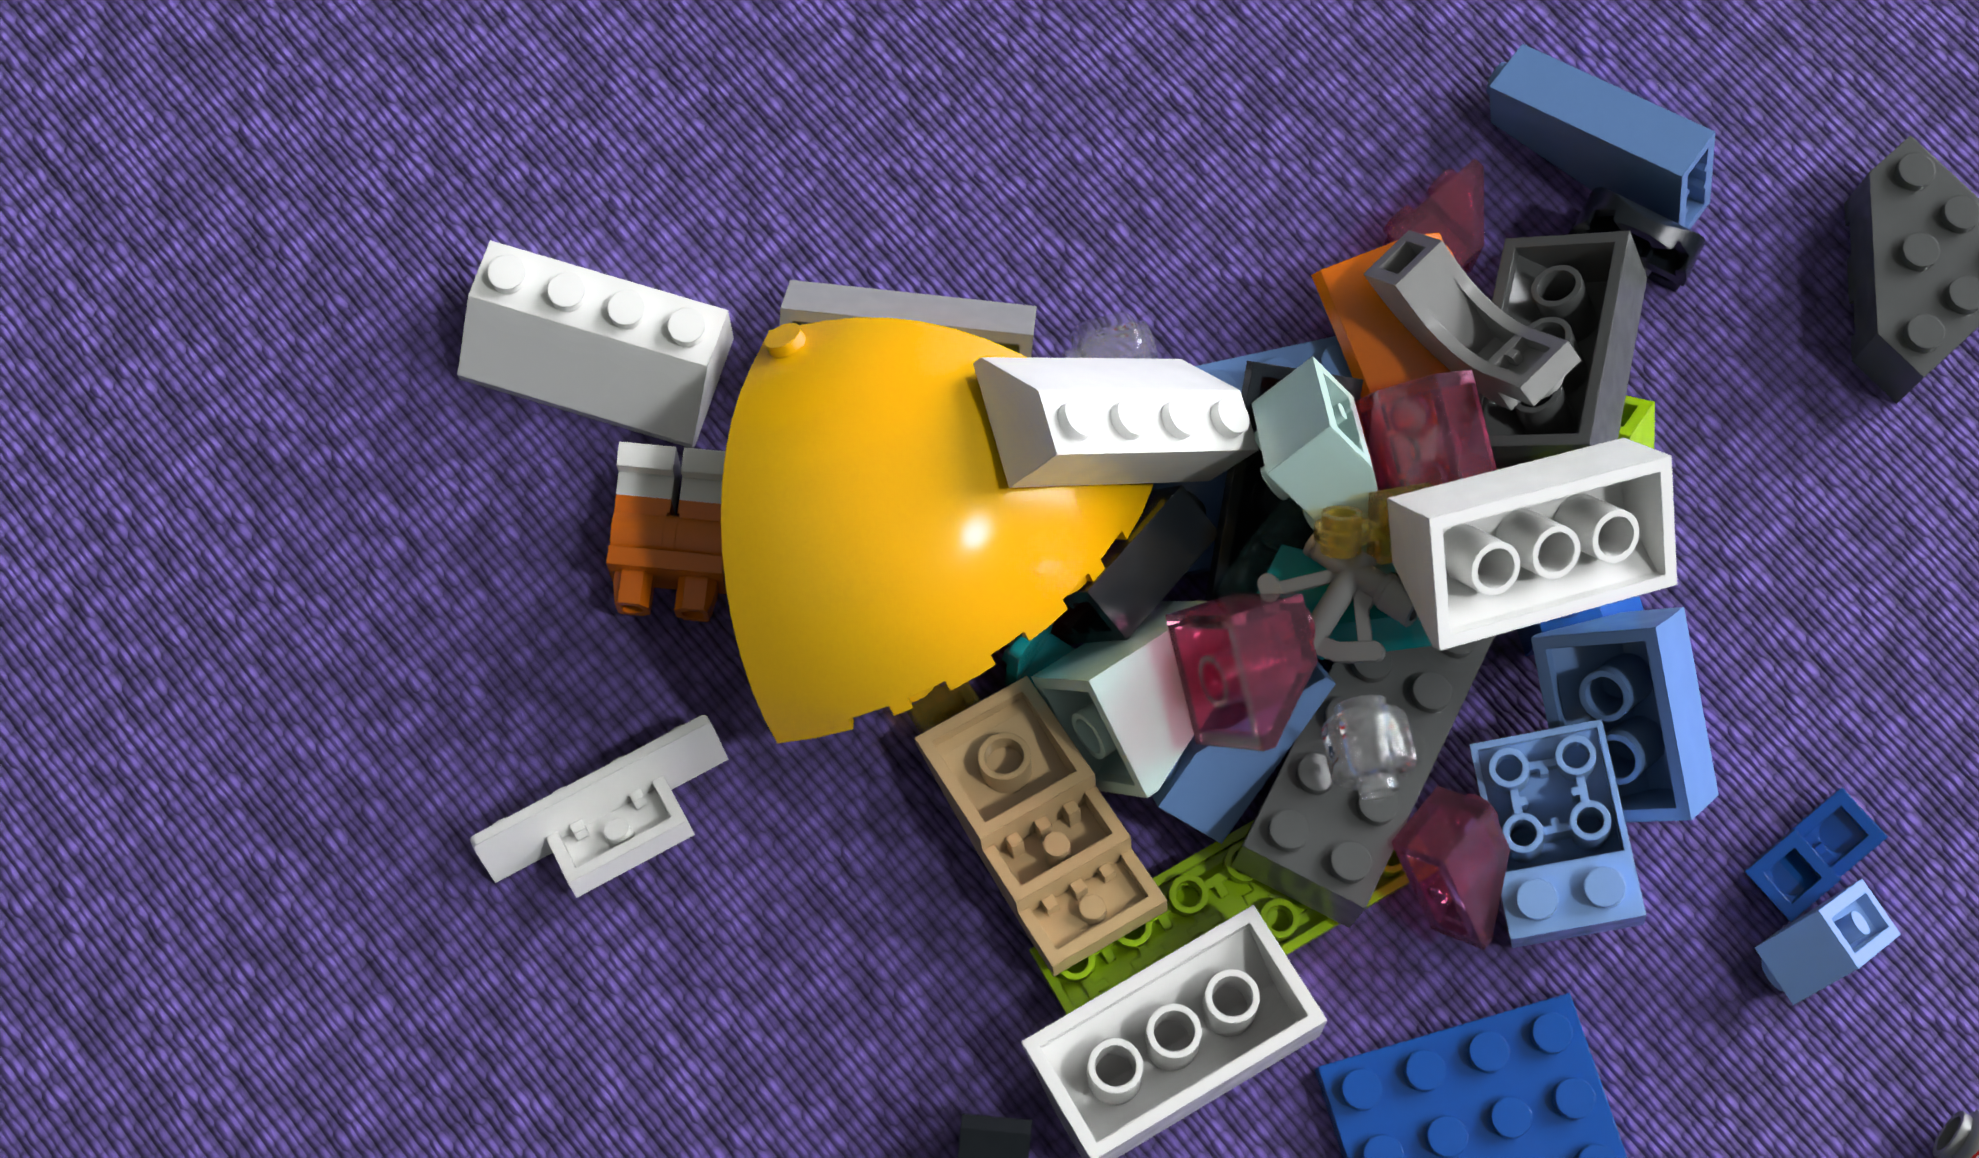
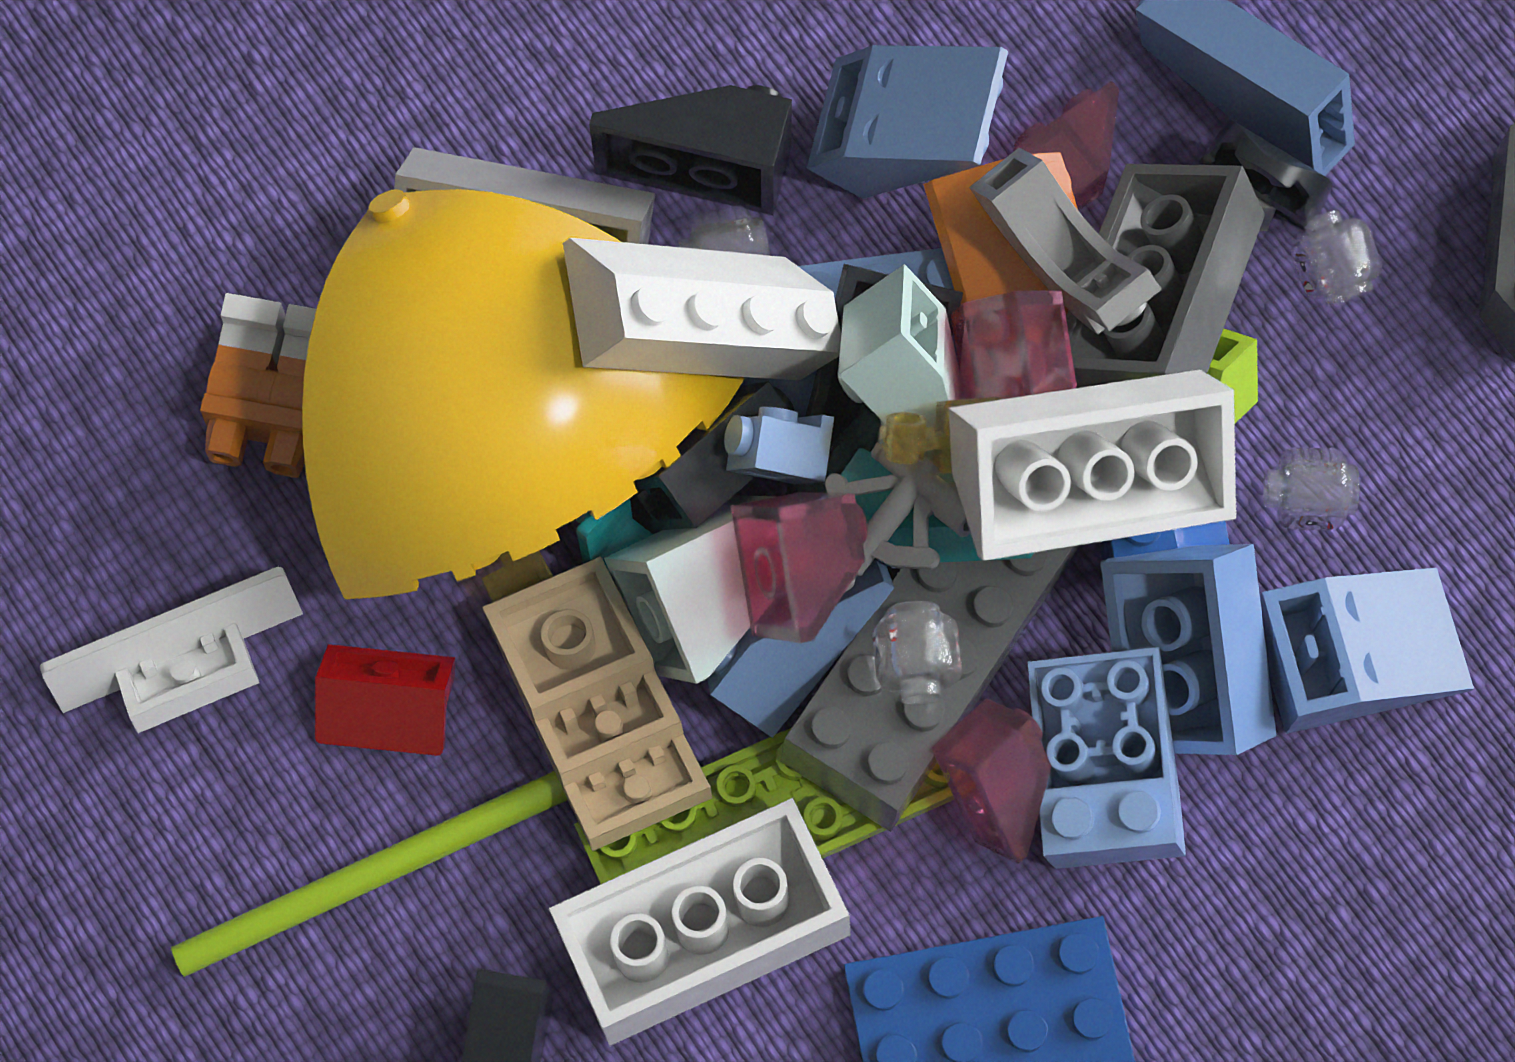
camera: 10 degrees right, 0 degrees up
(593, 344) = (214, 195): white slope -> none
(821, 839) = (383, 699): none -> red panel
(825, 1020) = (368, 874): none -> lime piece
(1078, 255) = (701, 144): none -> black slope
(1203, 549) = (779, 445): none -> light blue brick
(1282, 208) = (905, 115): none -> medium blue slope
(1712, 315) = (1336, 258): none -> clear head
(1720, 545) = (1312, 489): none -> clear head
(1789, 698) = (1360, 646): none -> slope
(1815, 854) = (1369, 804): blue slope -> none
(1826, 943) = (1367, 889): light blue slope -> none

